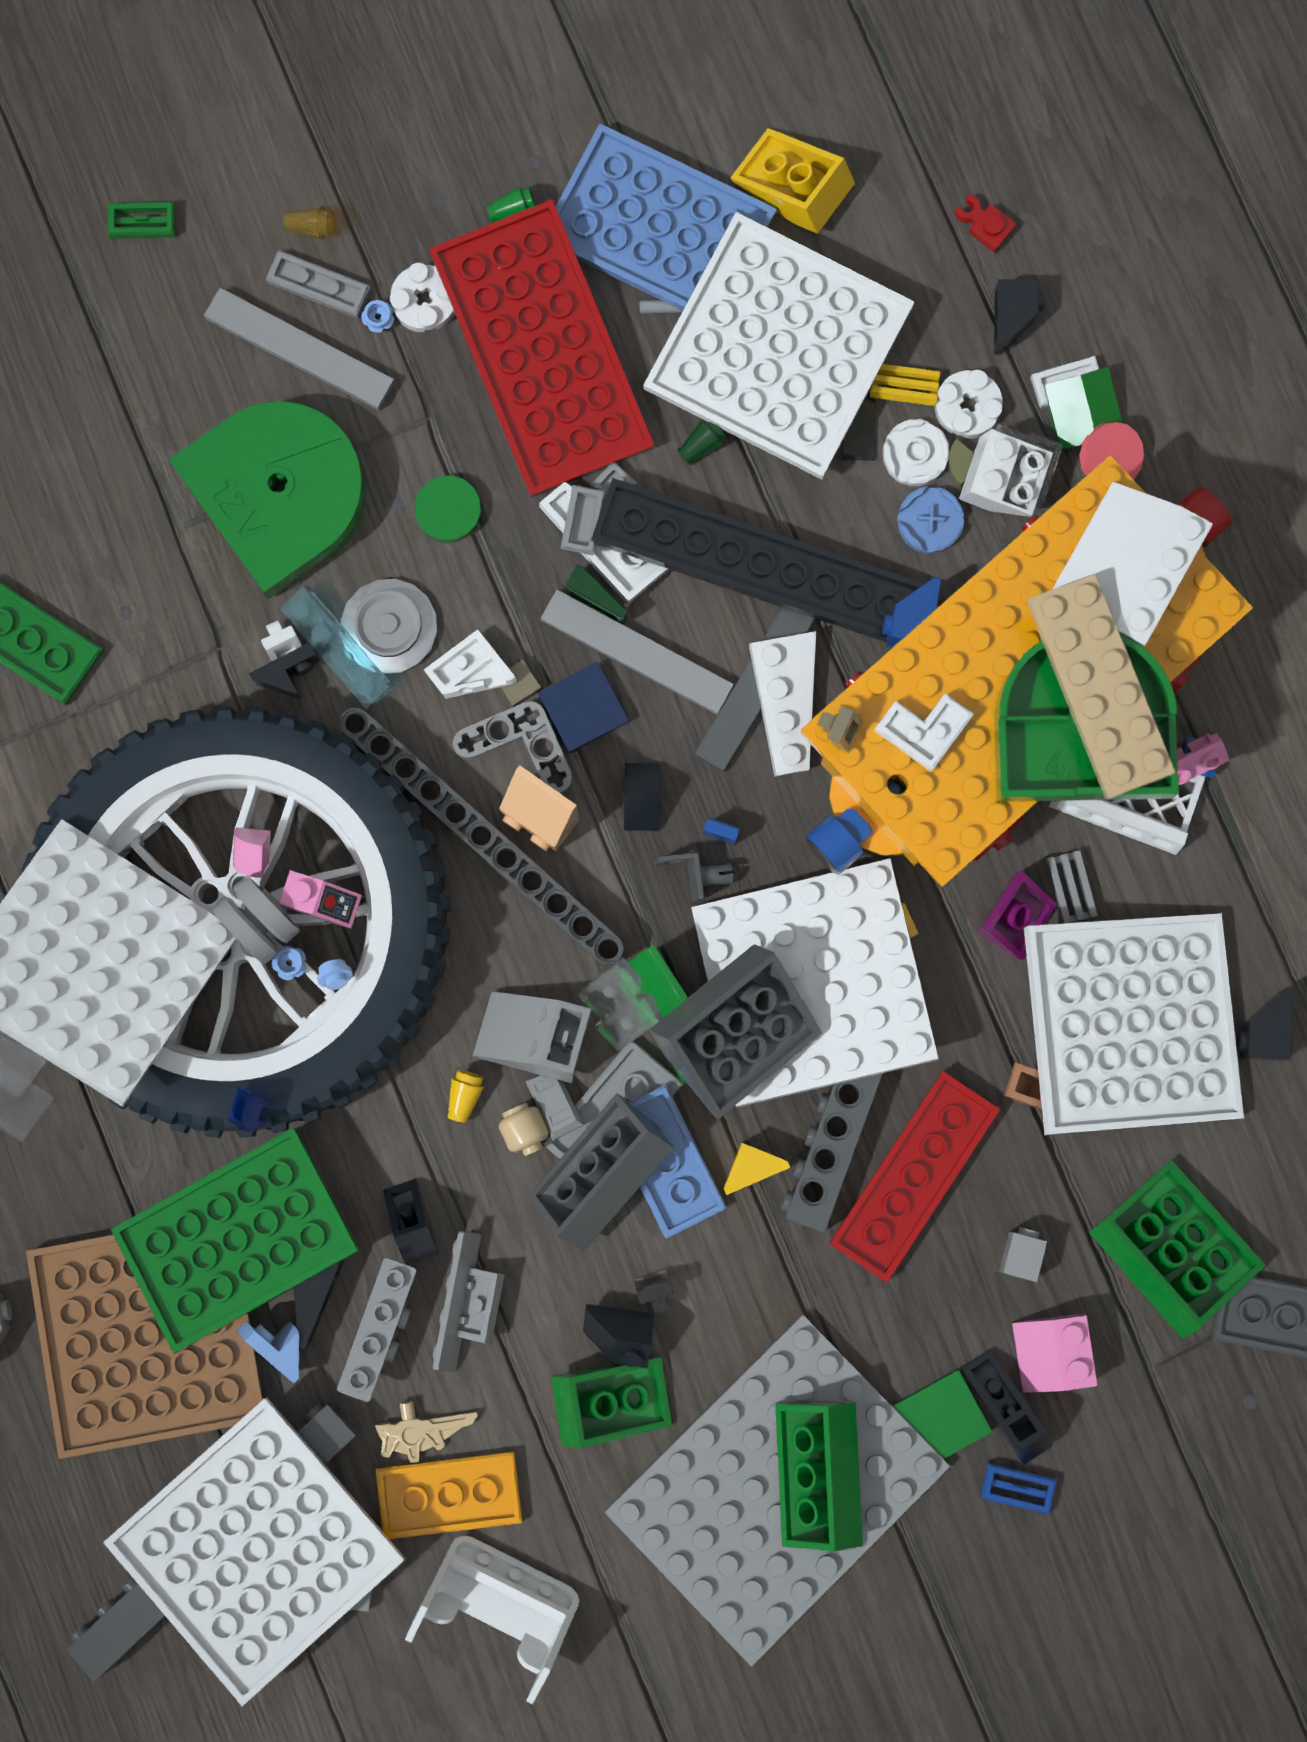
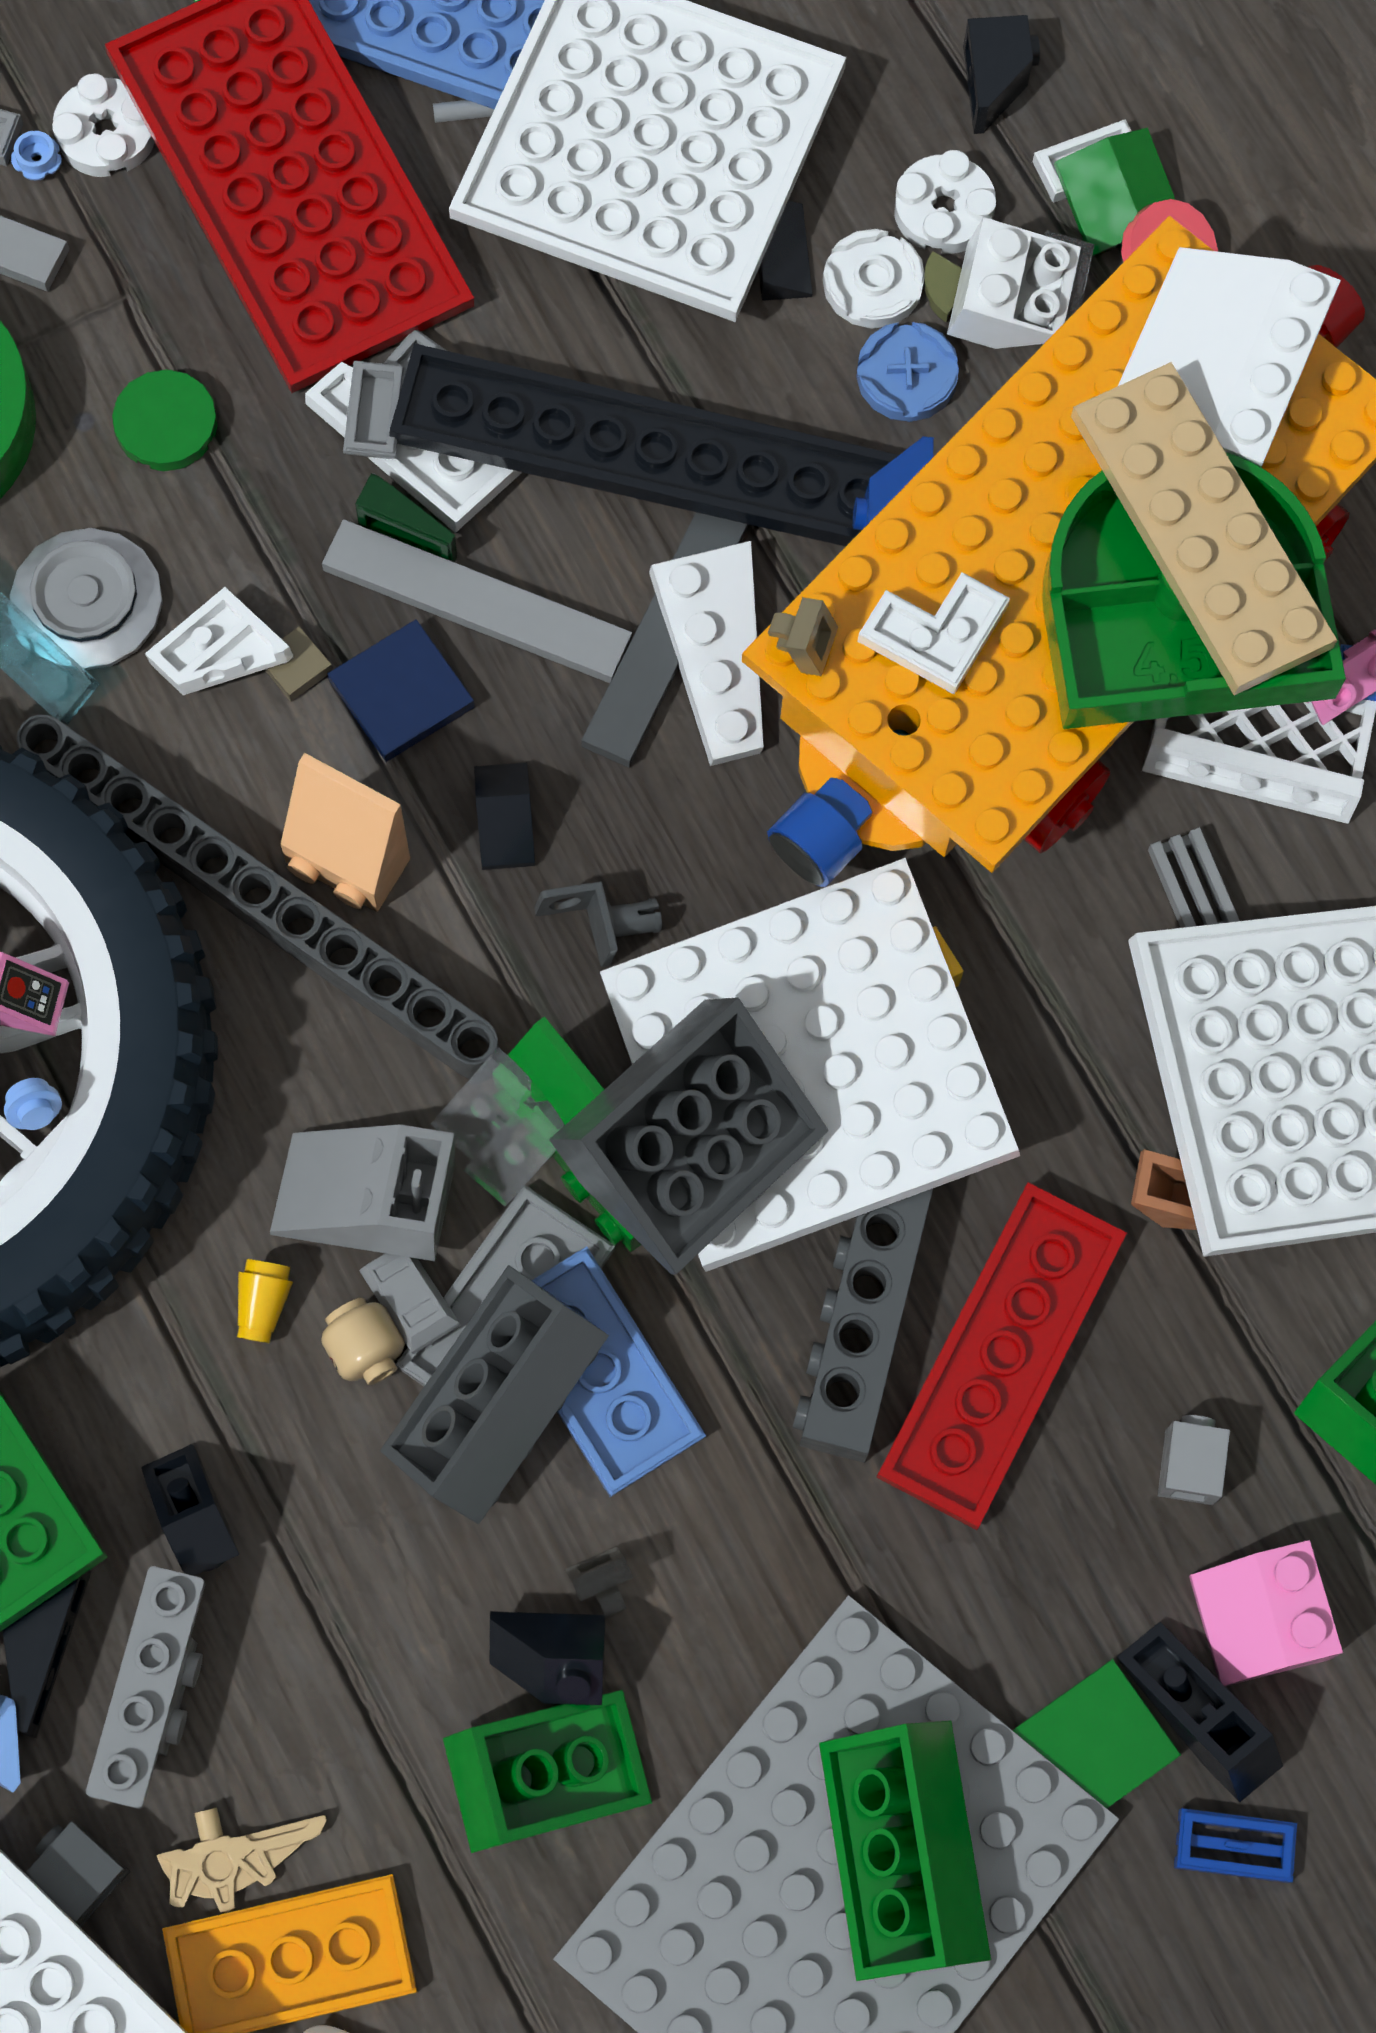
camera: 10 degrees left, 10 degrees down
(469, 1303) = (296, 1633): light grey bracket -> none
(528, 733) = (316, 735): light grey beam -> none
(701, 441) = (547, 287): dark green cone -> none
(721, 831) = (634, 851): blue tile -> none
(752, 1166) = (741, 1364): yellow slope -> none
(905, 379) = (846, 183): yellow tile -> none
(1017, 907) = (1098, 944): magenta slope -> none

